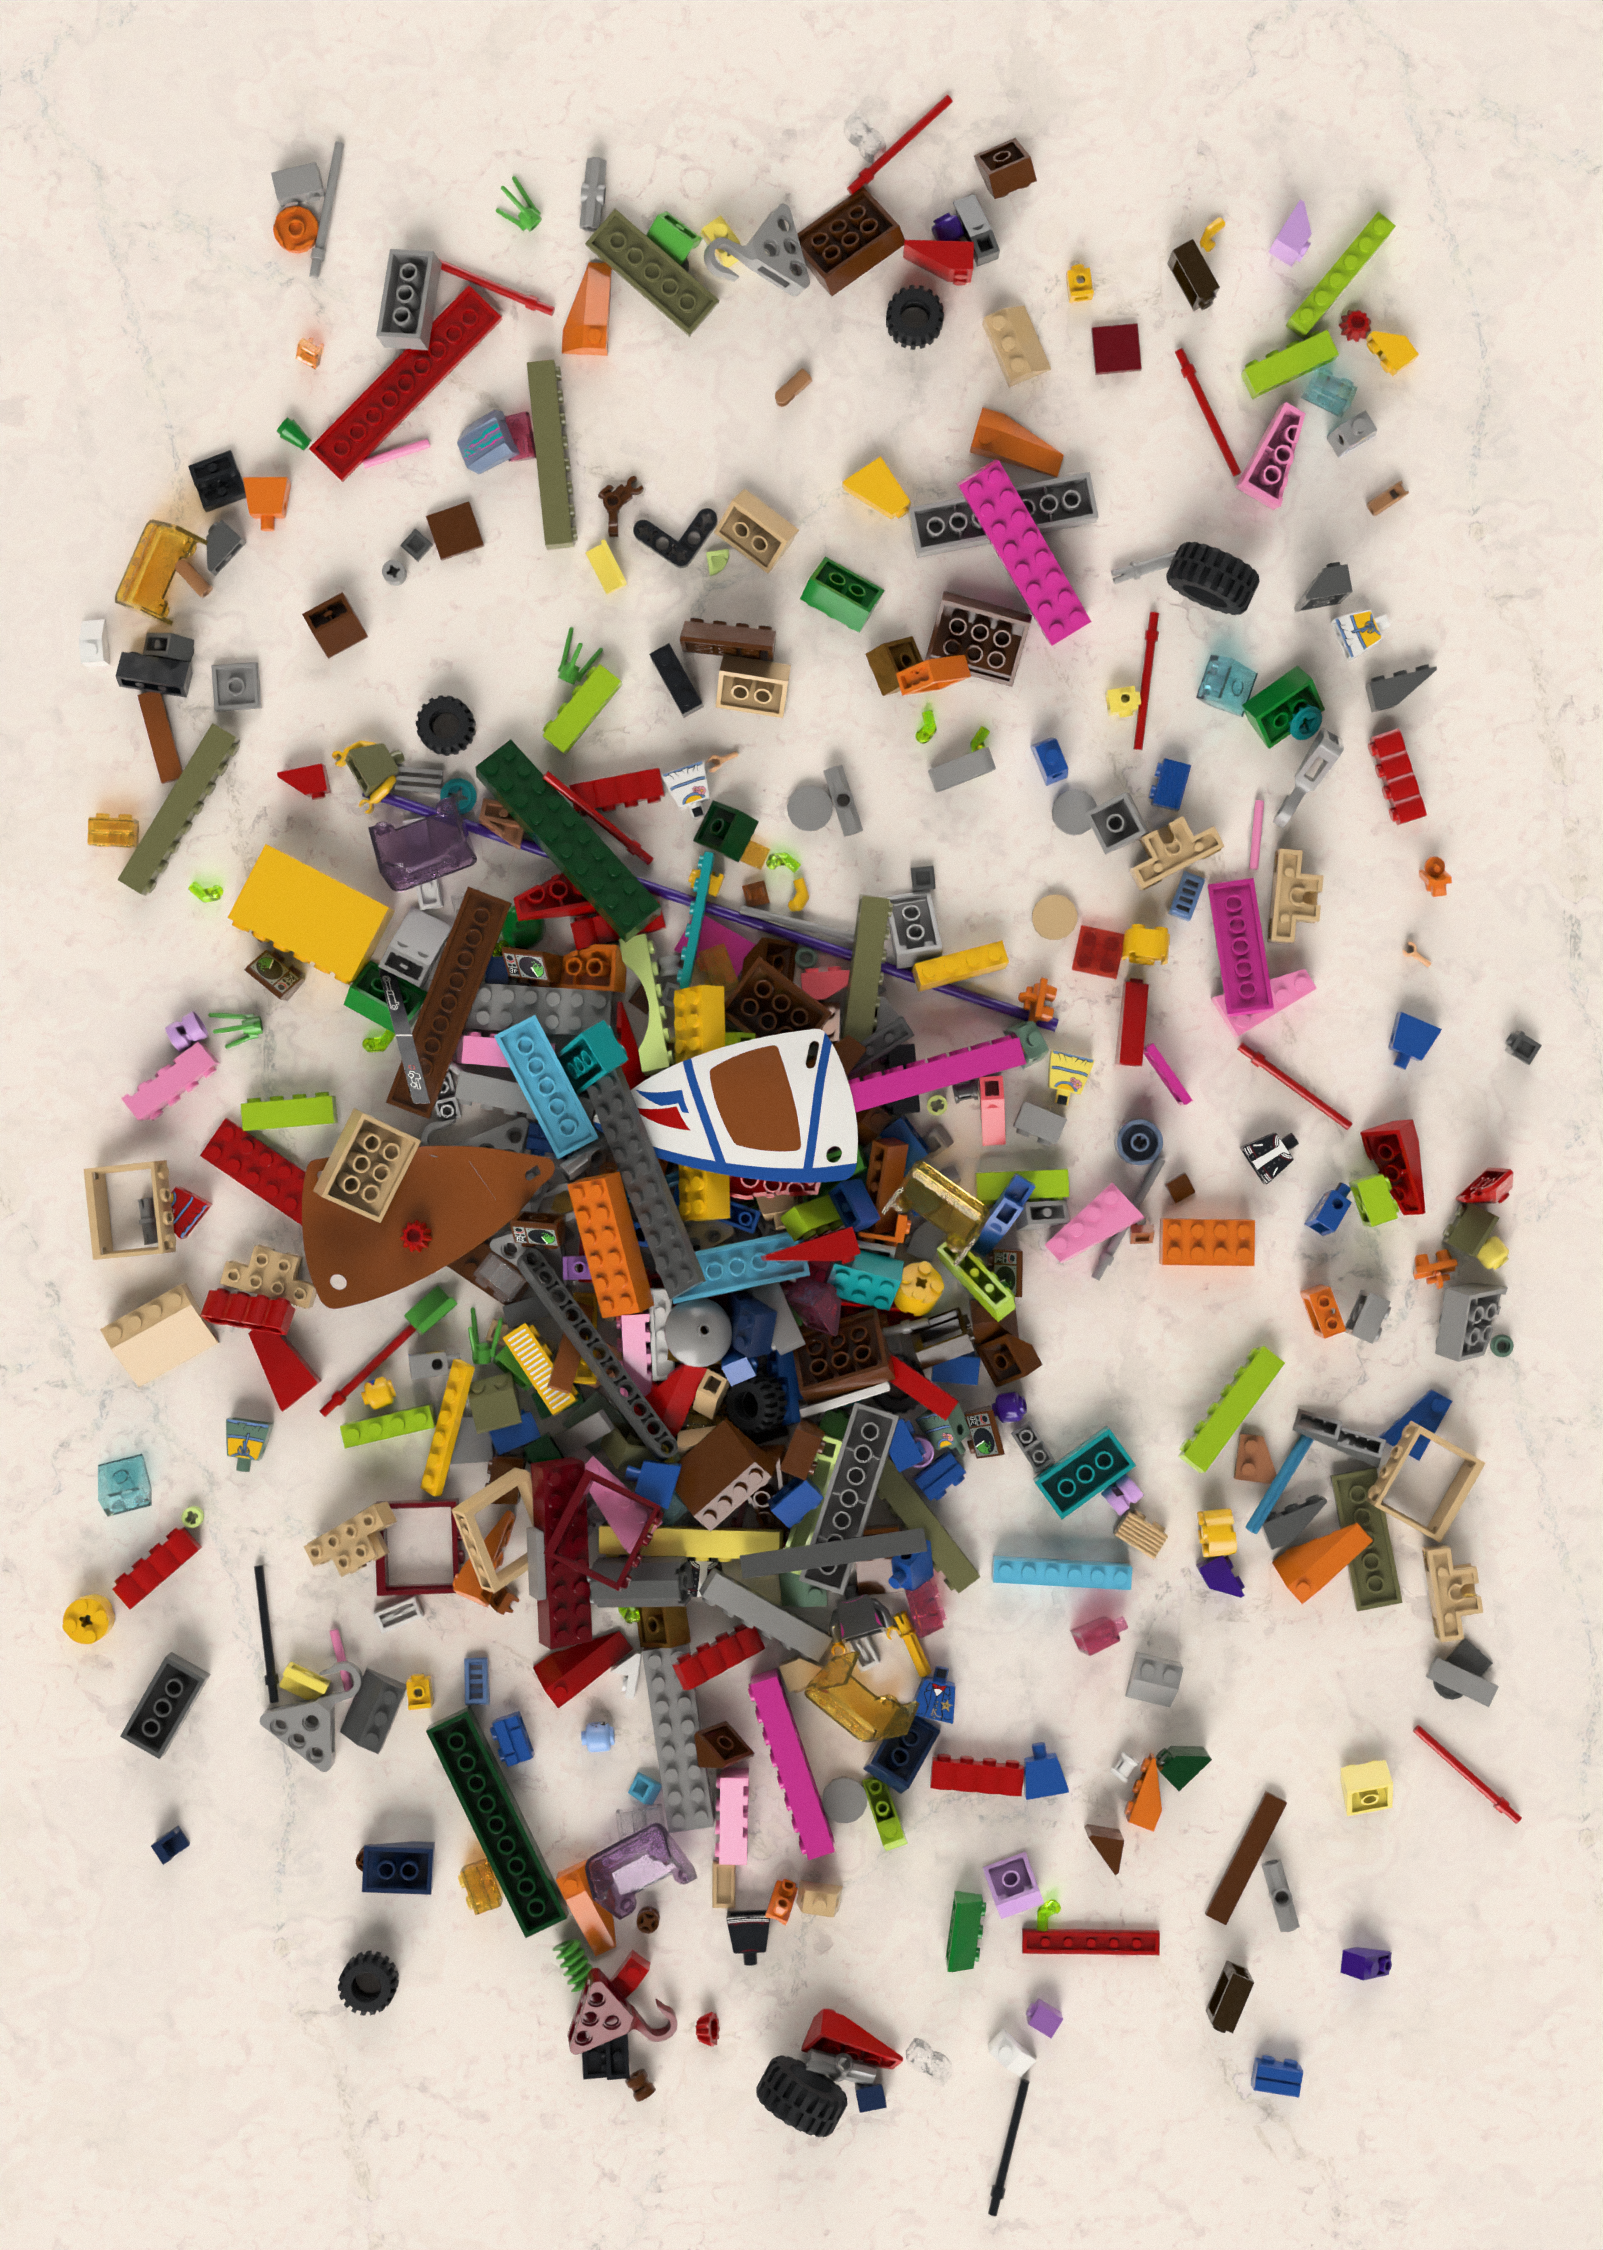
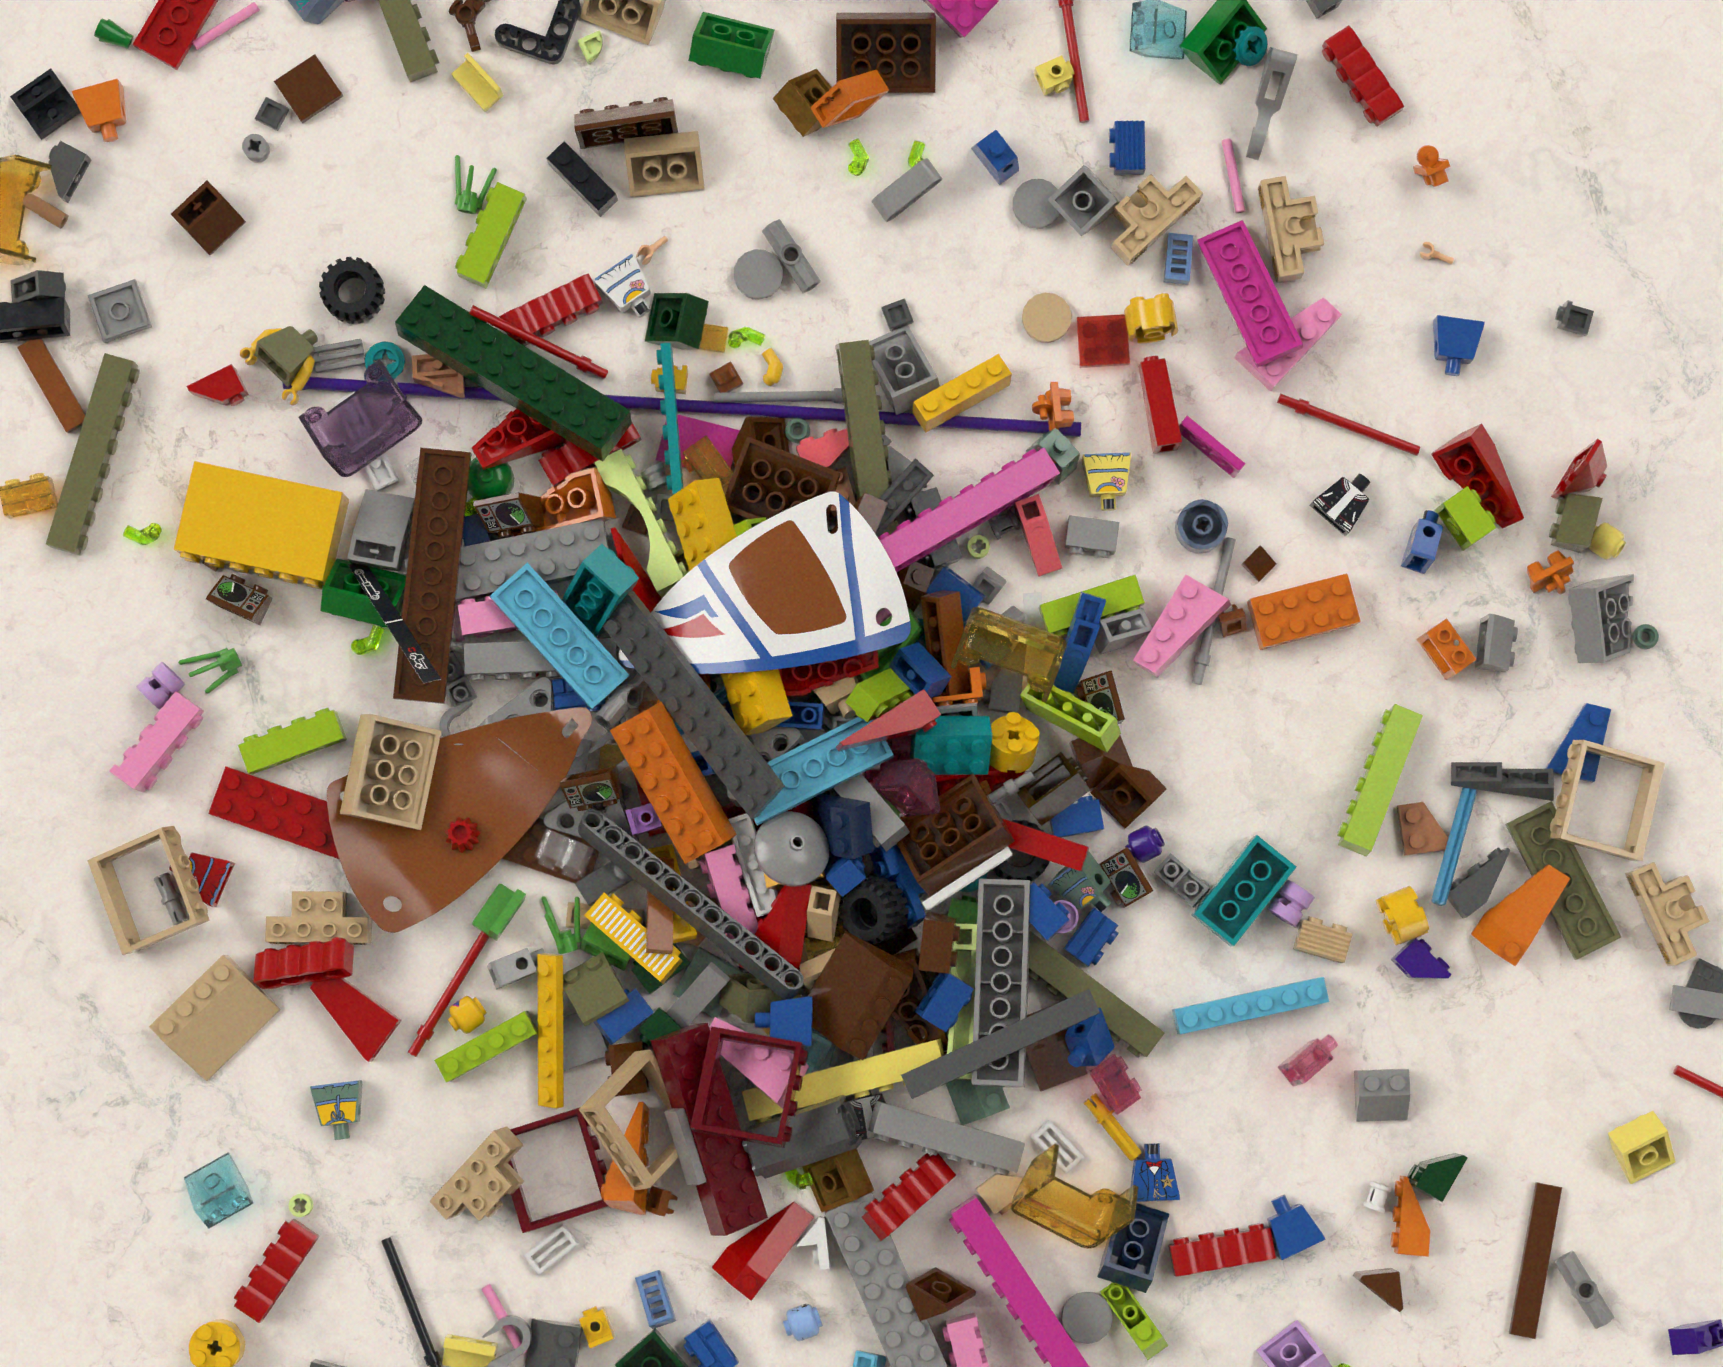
camera: 20 degrees left, 5 degrees down
(858, 1619) = (1047, 1115): dark grey torso -> none

